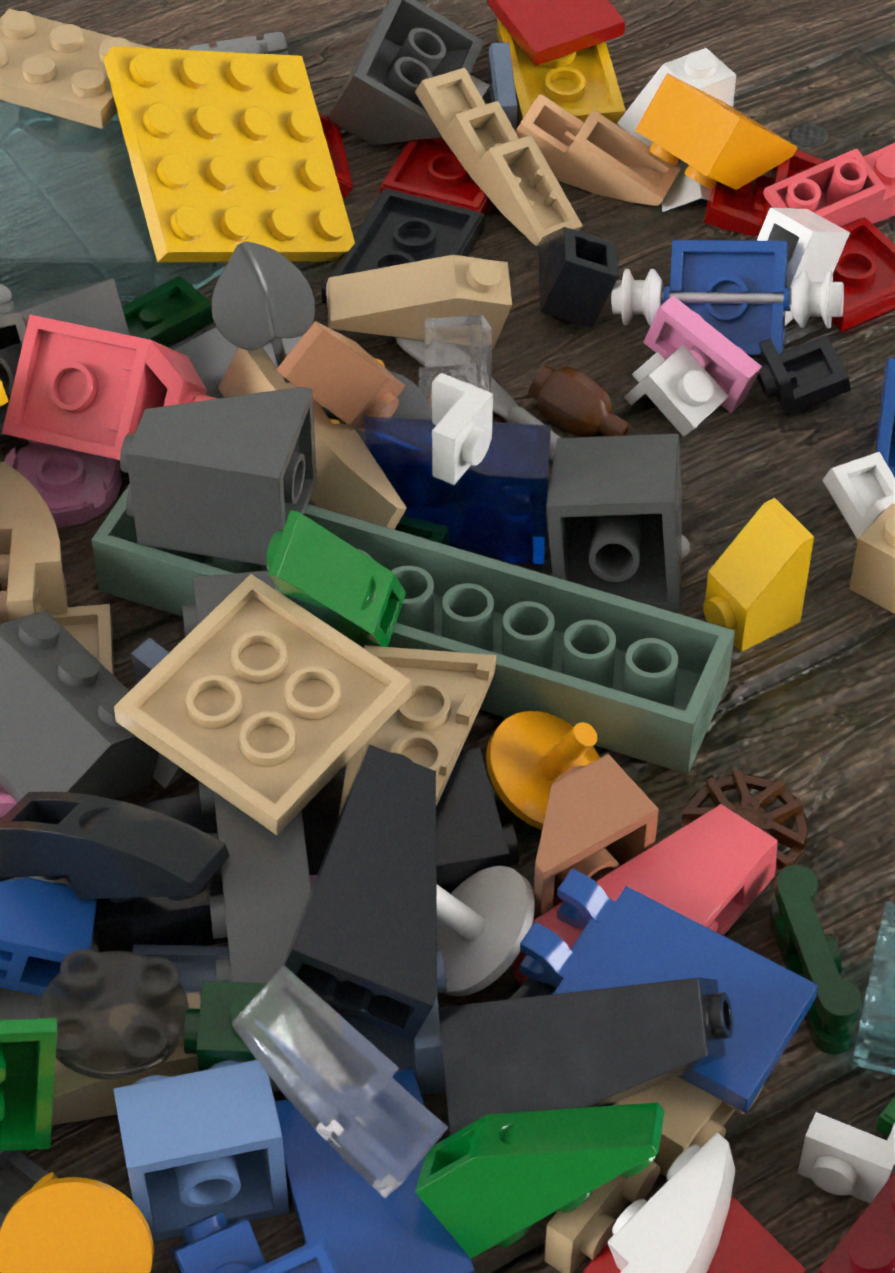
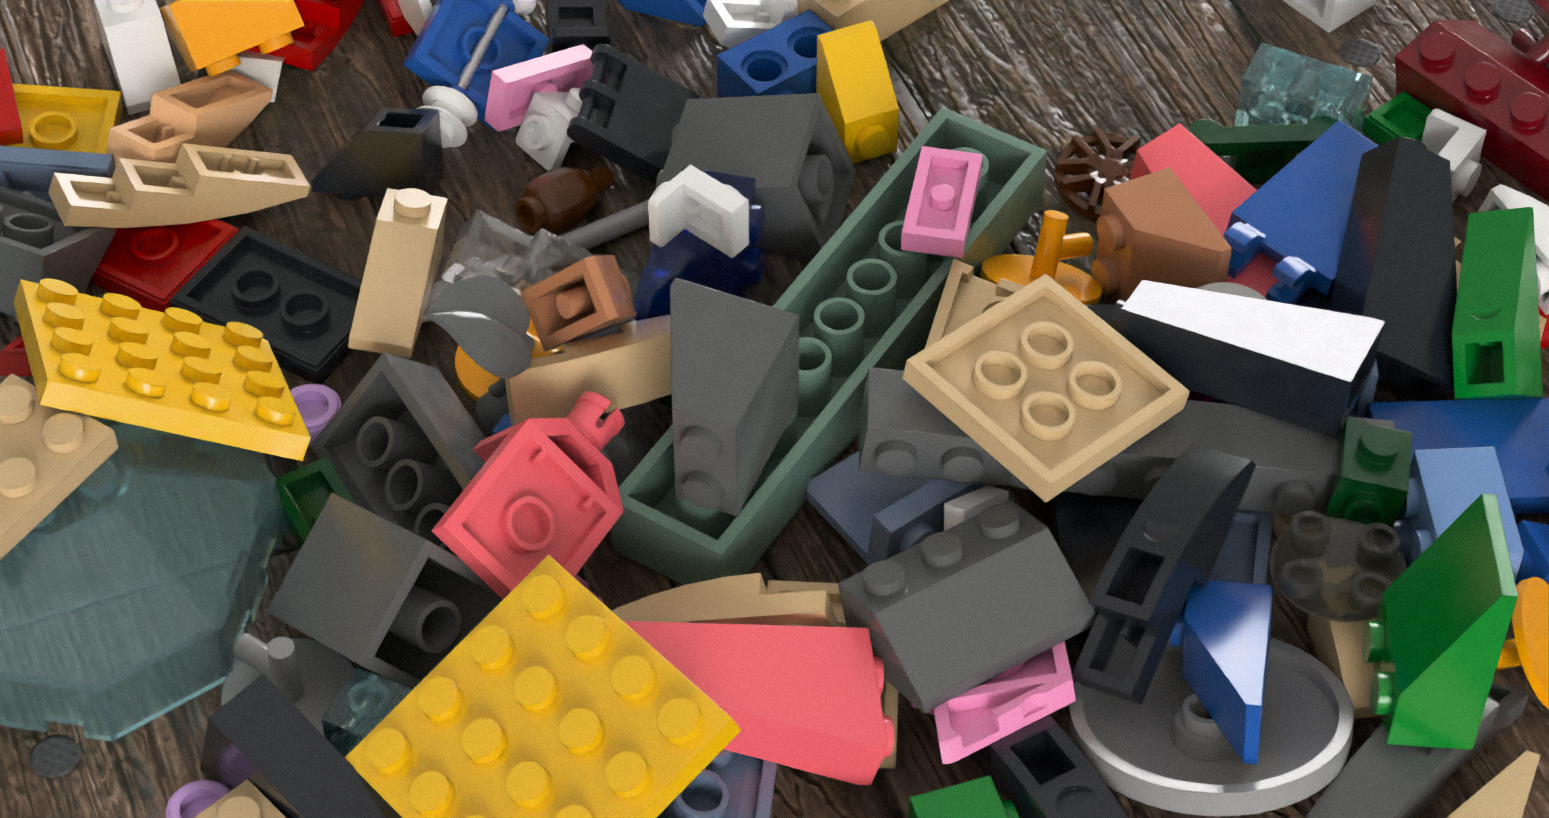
camera: 80 degrees left, 0 degrees up
(335, 581) = (898, 324): green slope -> none
(338, 1082) = (1443, 403): clear slope -> none
(565, 629) = (941, 202): none -> bright pink plate
(701, 415) = (631, 112): none -> black plate
(824, 516) = (773, 61): none -> blue brick

